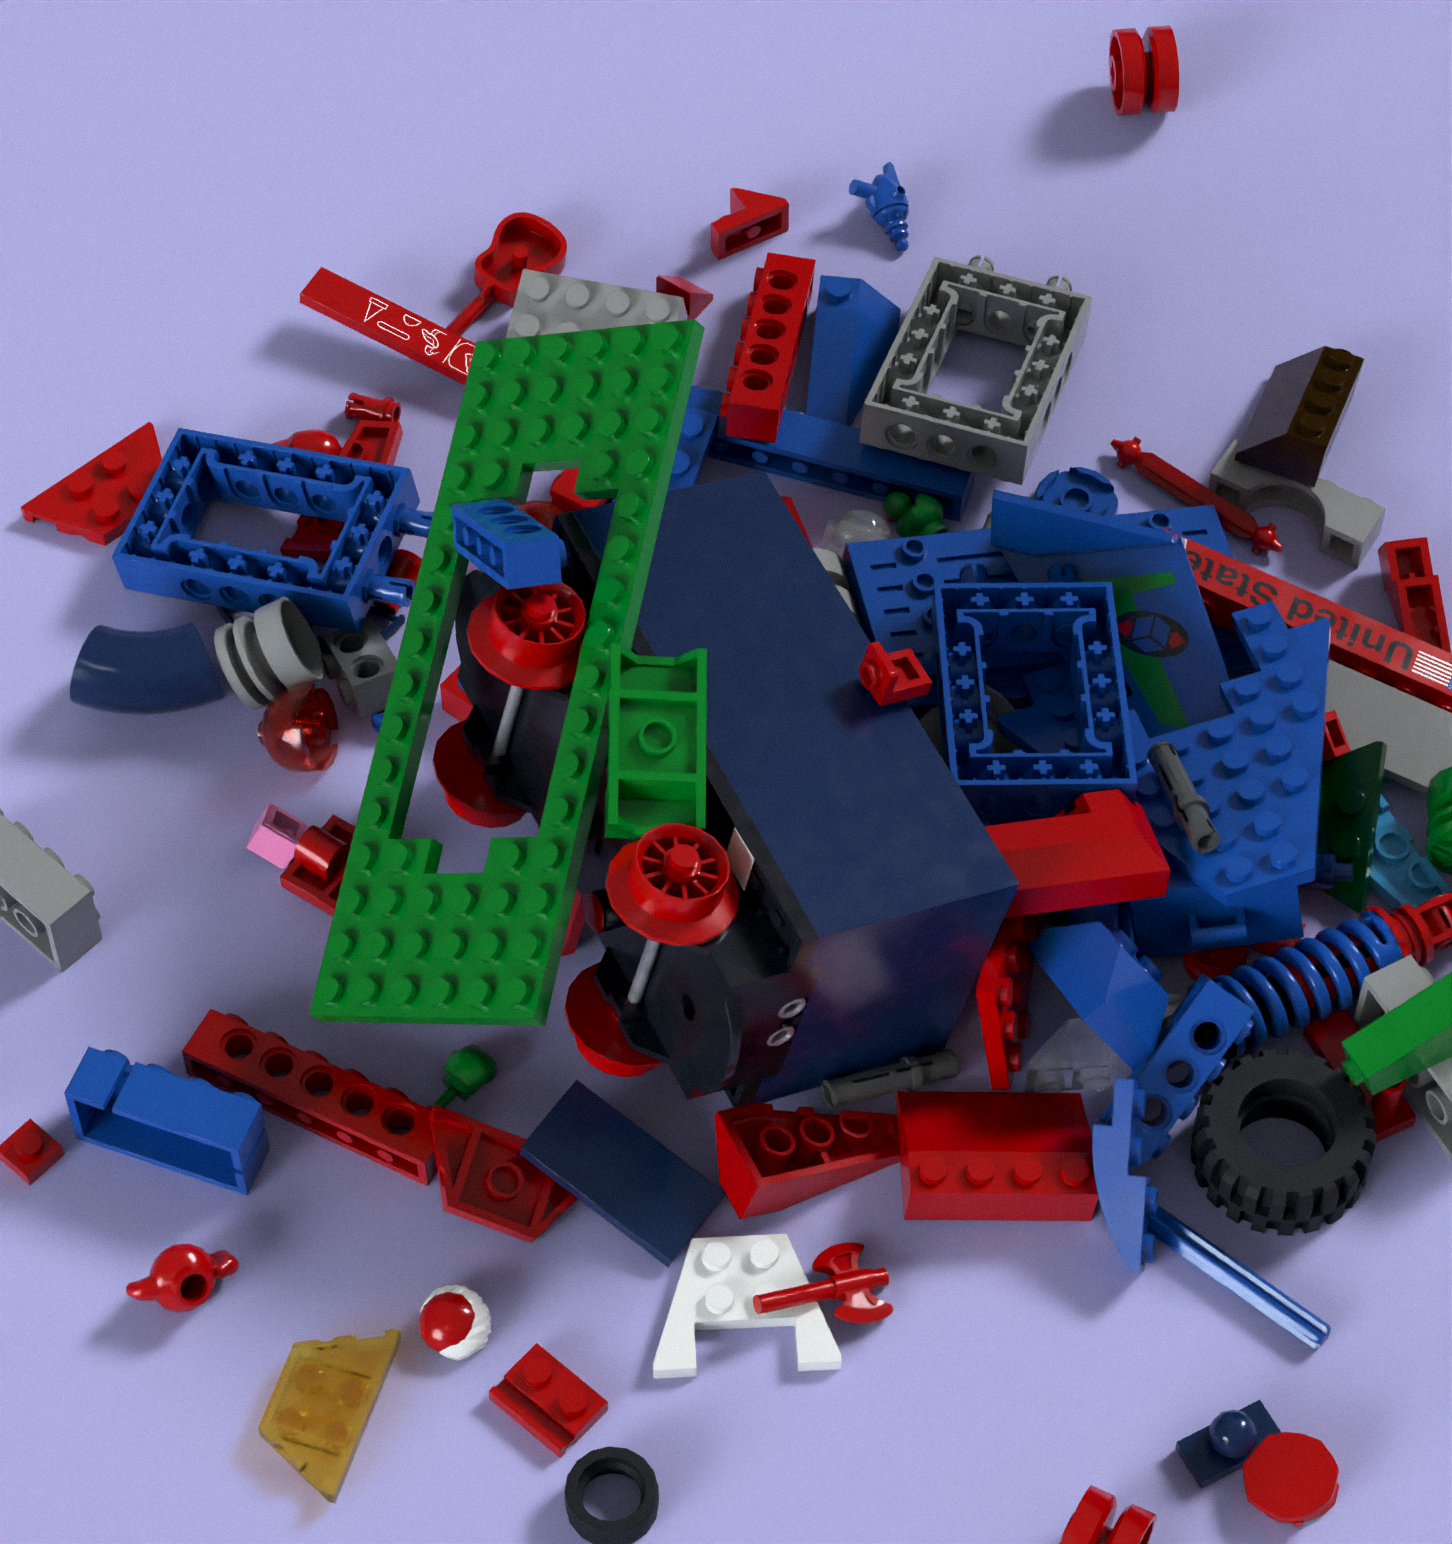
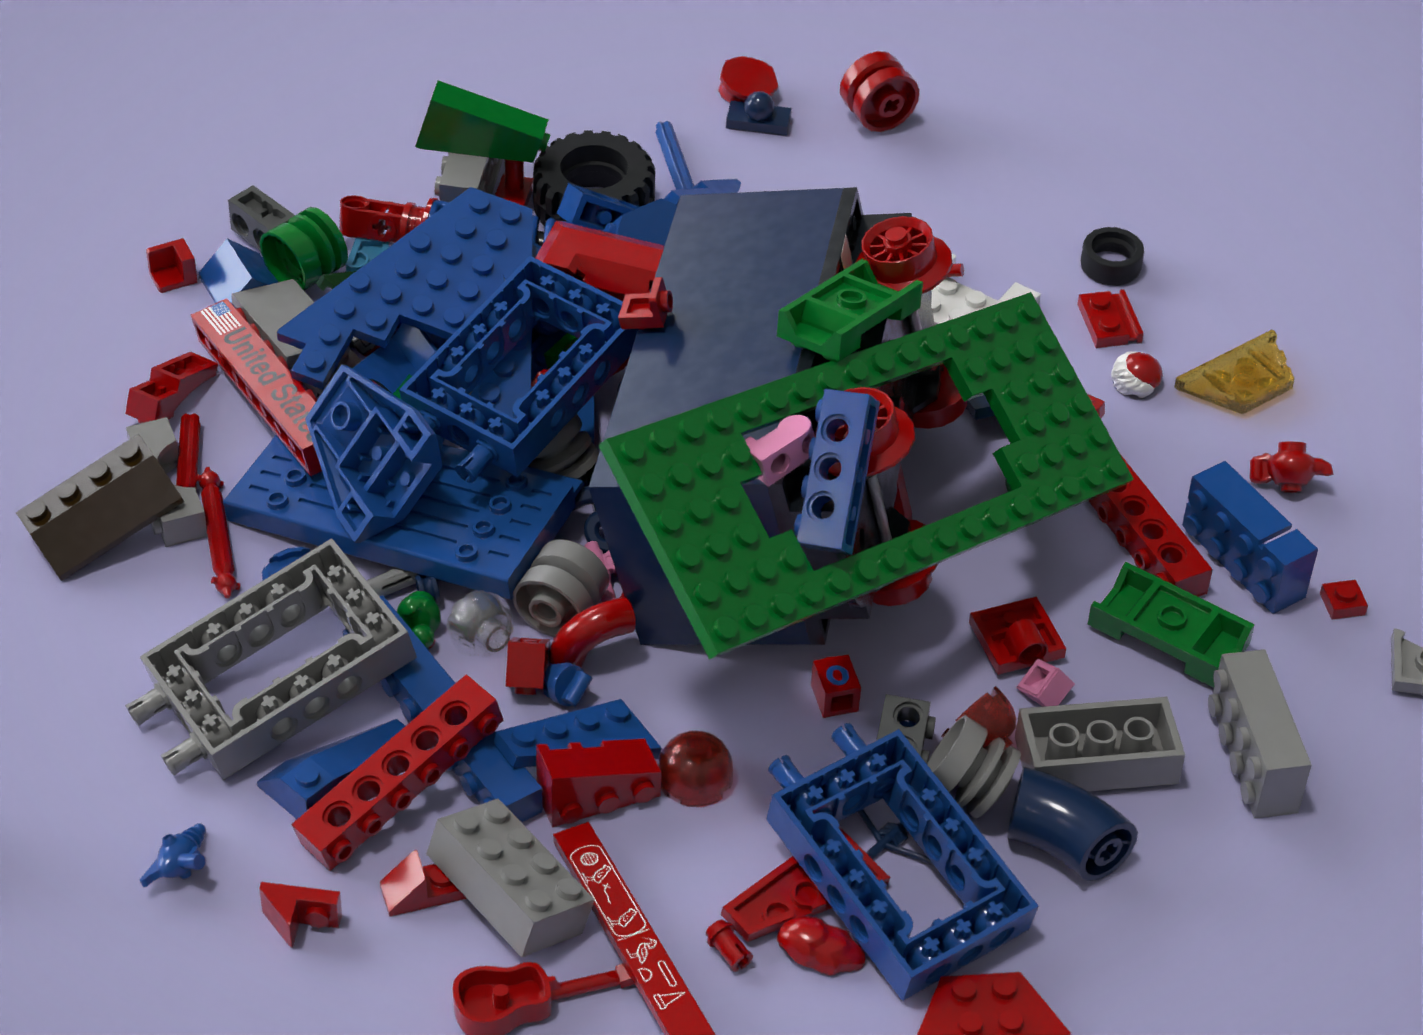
camera: 145 degrees left, 10 degrees down
(169, 776) = (1103, 743): none -> light grey brick
(191, 972) = (1170, 621): none -> green piece
(582, 517) = (782, 448): none -> bright pink leg
(1189, 808) = (502, 253): dark grey pin -> none
(1319, 555) = (188, 450): none -> red axle

